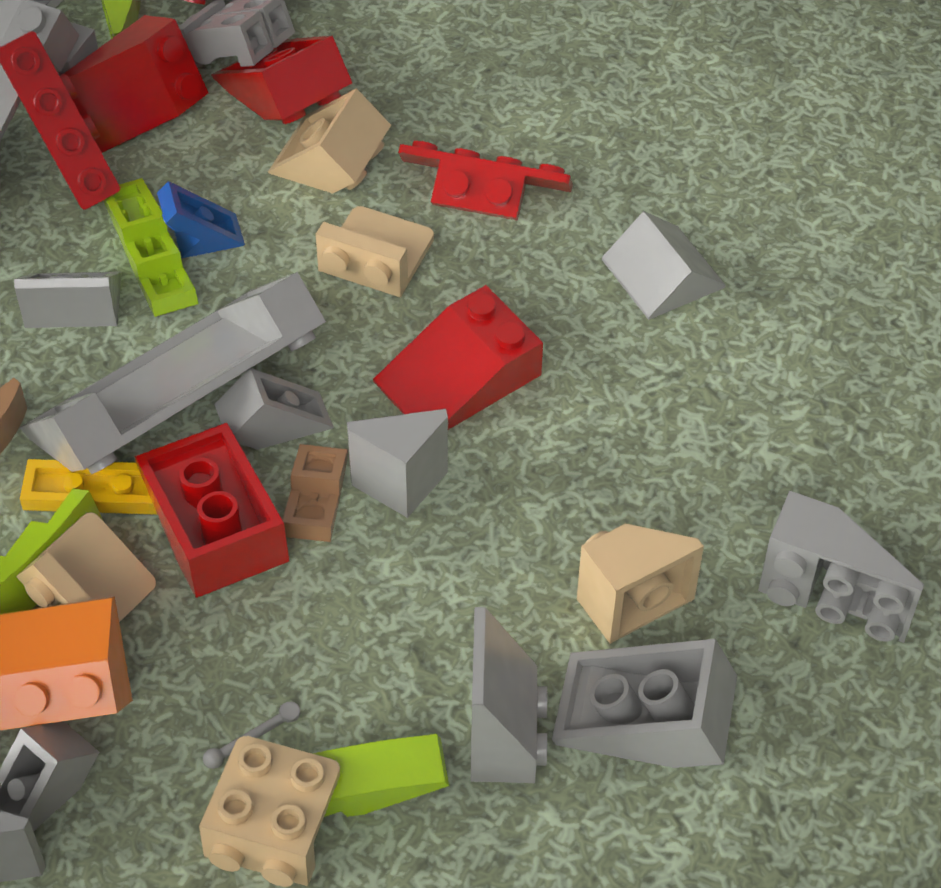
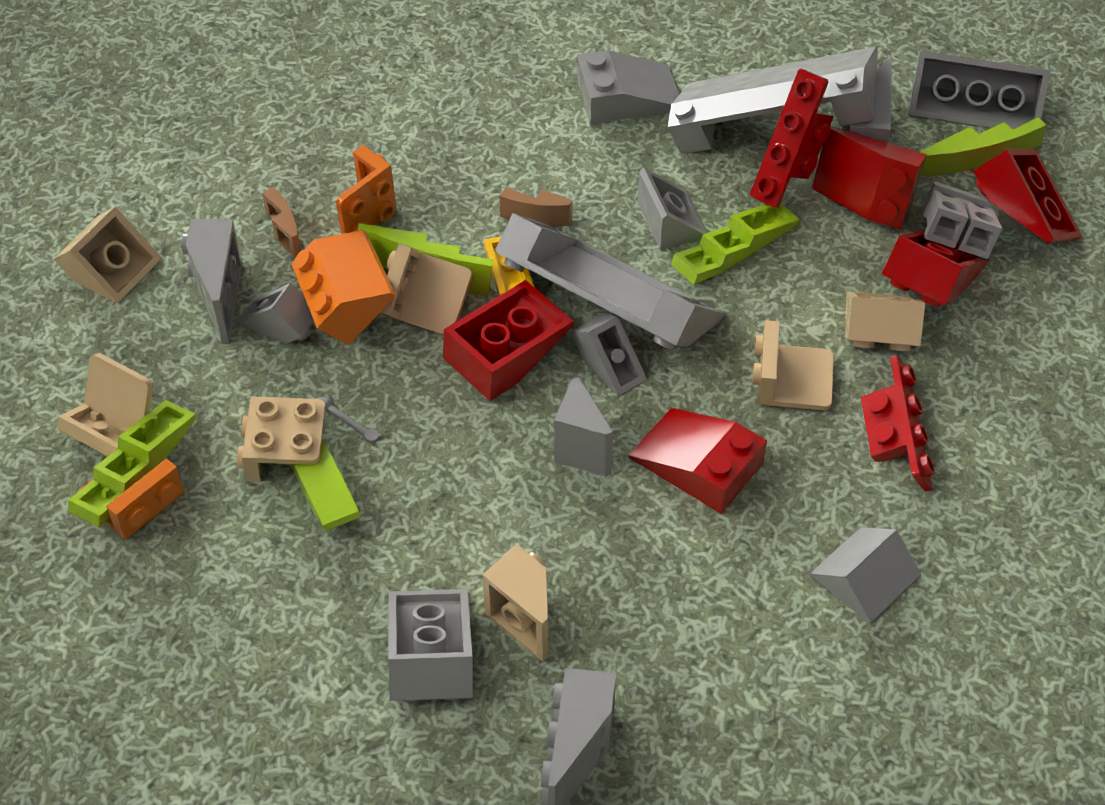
camera: 75 degrees right, 0 degrees up
(197, 222) = (765, 259): blue slope -> none
(318, 483) = (543, 401): medium nougat slope -> none
(504, 707) = (384, 533): light grey slope -> none

